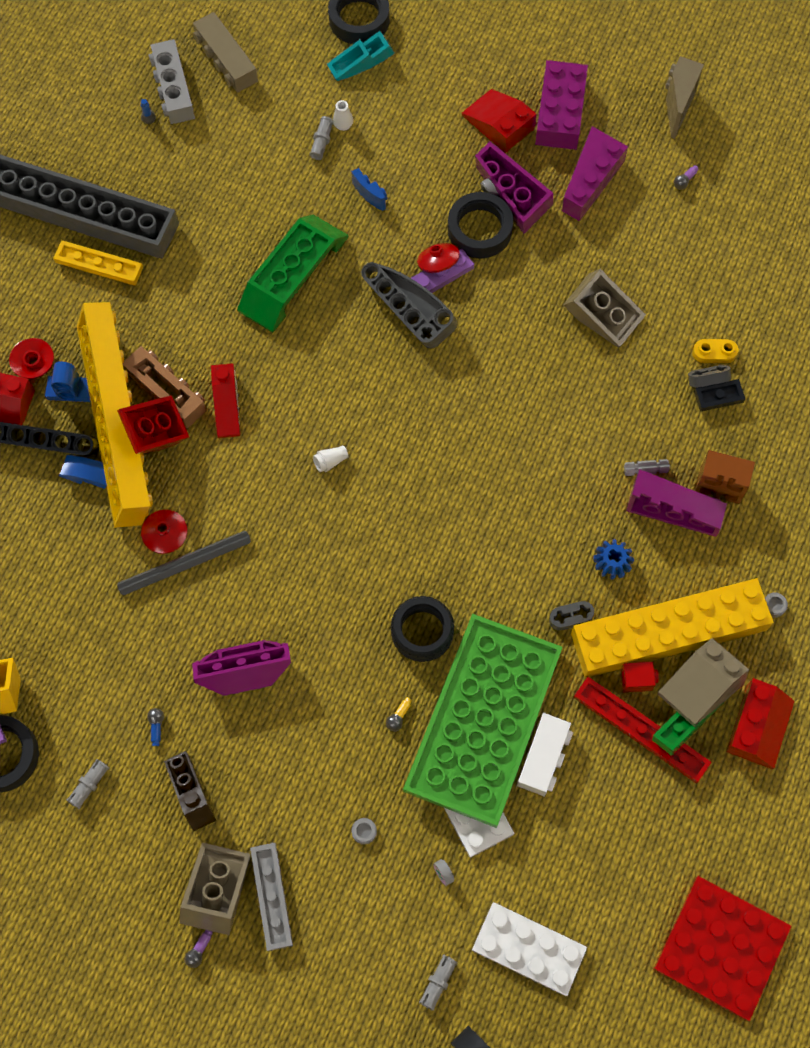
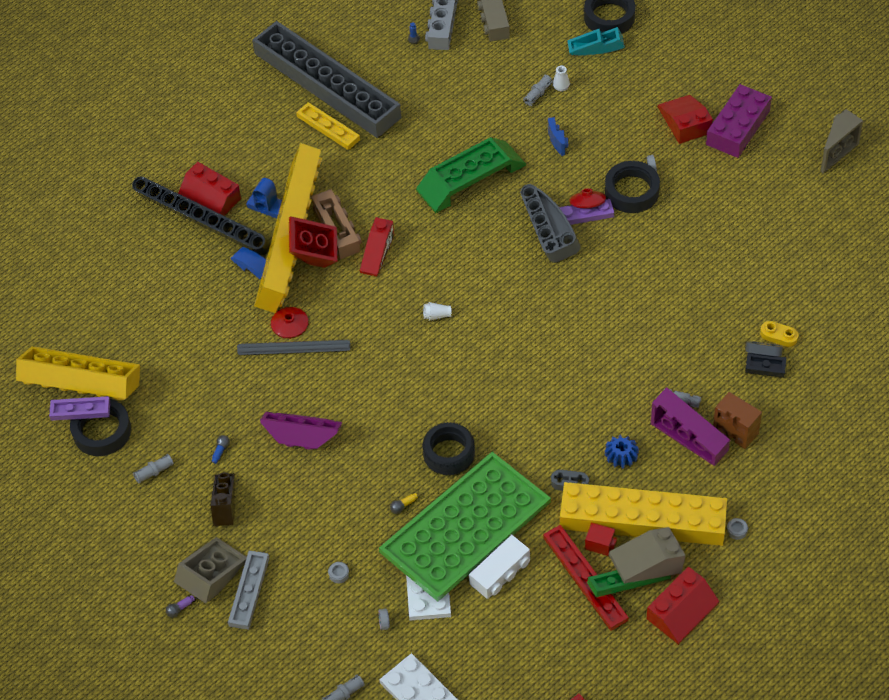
camera: 25 degrees right, 15 degrees down
(30, 350) = (248, 174): red dish -> none
(515, 186) = (673, 170): magenta wedge -> none
(594, 170) = (739, 176): magenta wedge -> none
(604, 308) = (702, 274): dark tan slope -> none
(682, 181) = (812, 204): flat silver piece -> none

